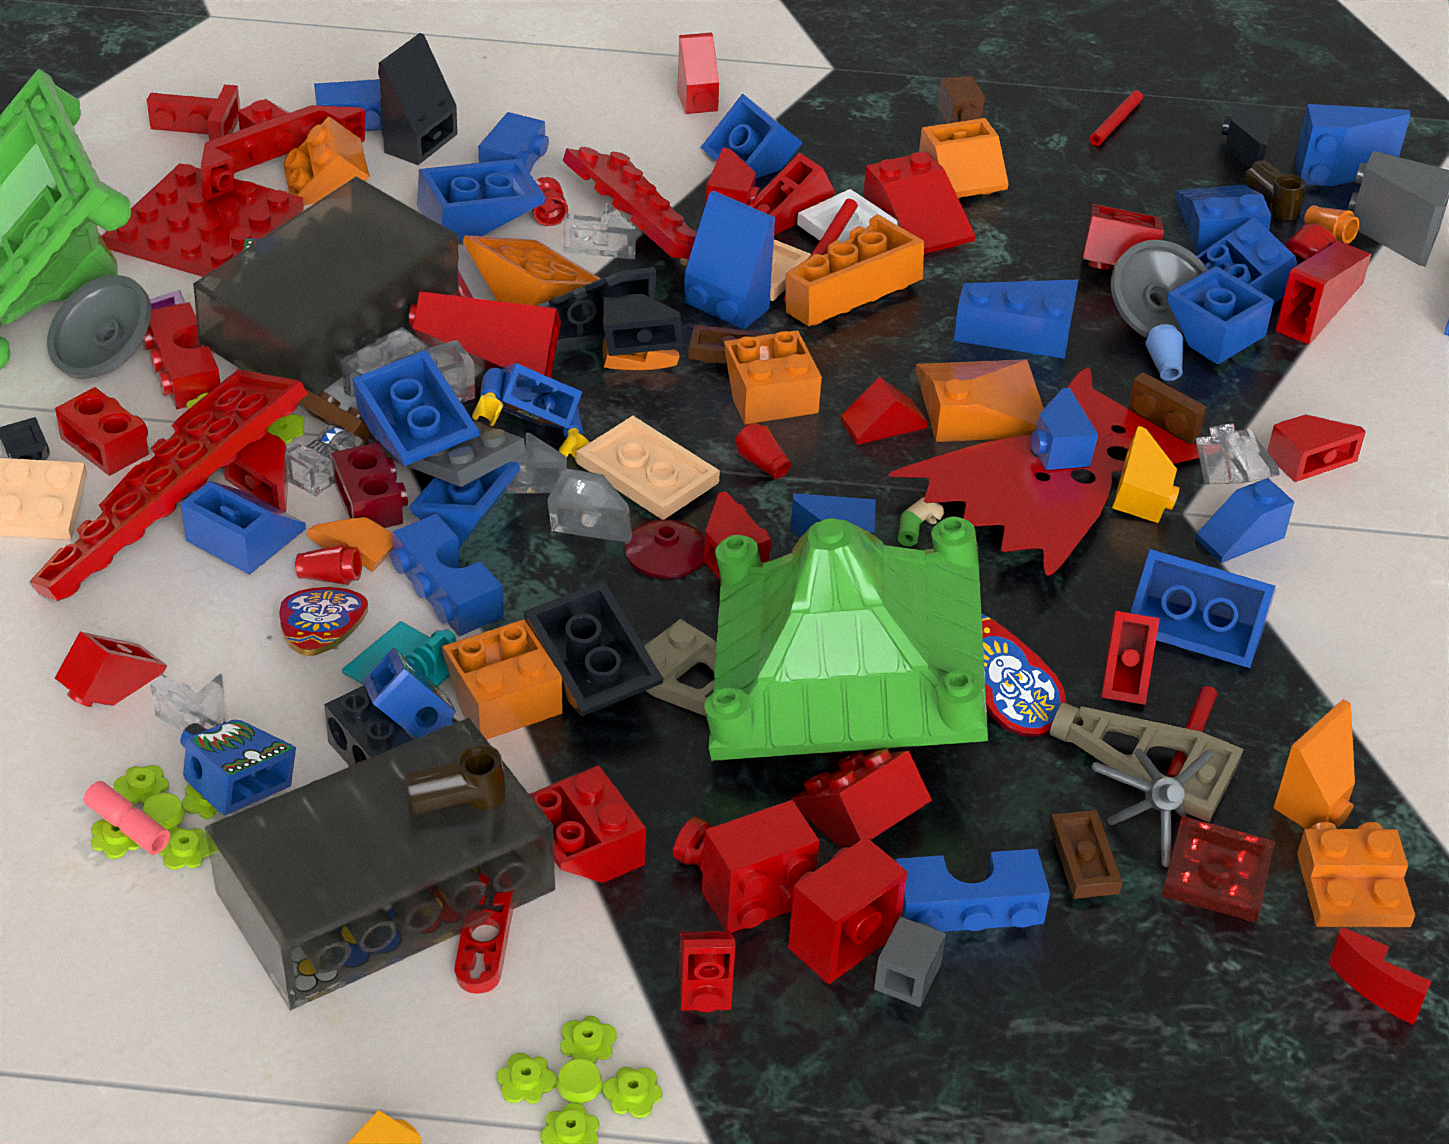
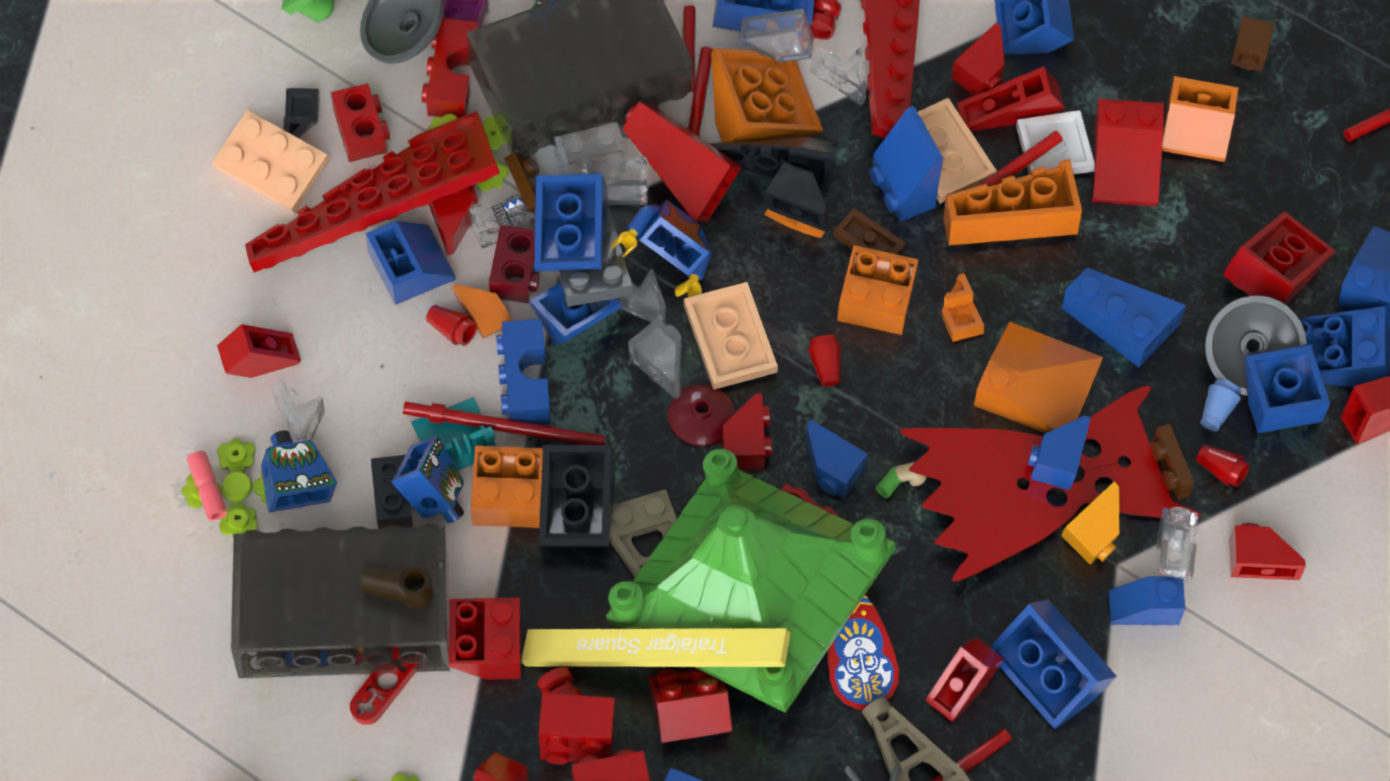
camera: 30 degrees right, 20 degrees up
(320, 618) = (416, 373): shield -> none
(373, 643) = (439, 413): none -> red bar
(521, 216) = (779, 35): none -> clear slope
(801, 736) = (657, 647): none -> light yellow tile
(859, 371) = (960, 311): none -> orange slope
(882, 414) = (946, 364): red slope -> none
(1216, 393) = (1224, 465): none -> red cone

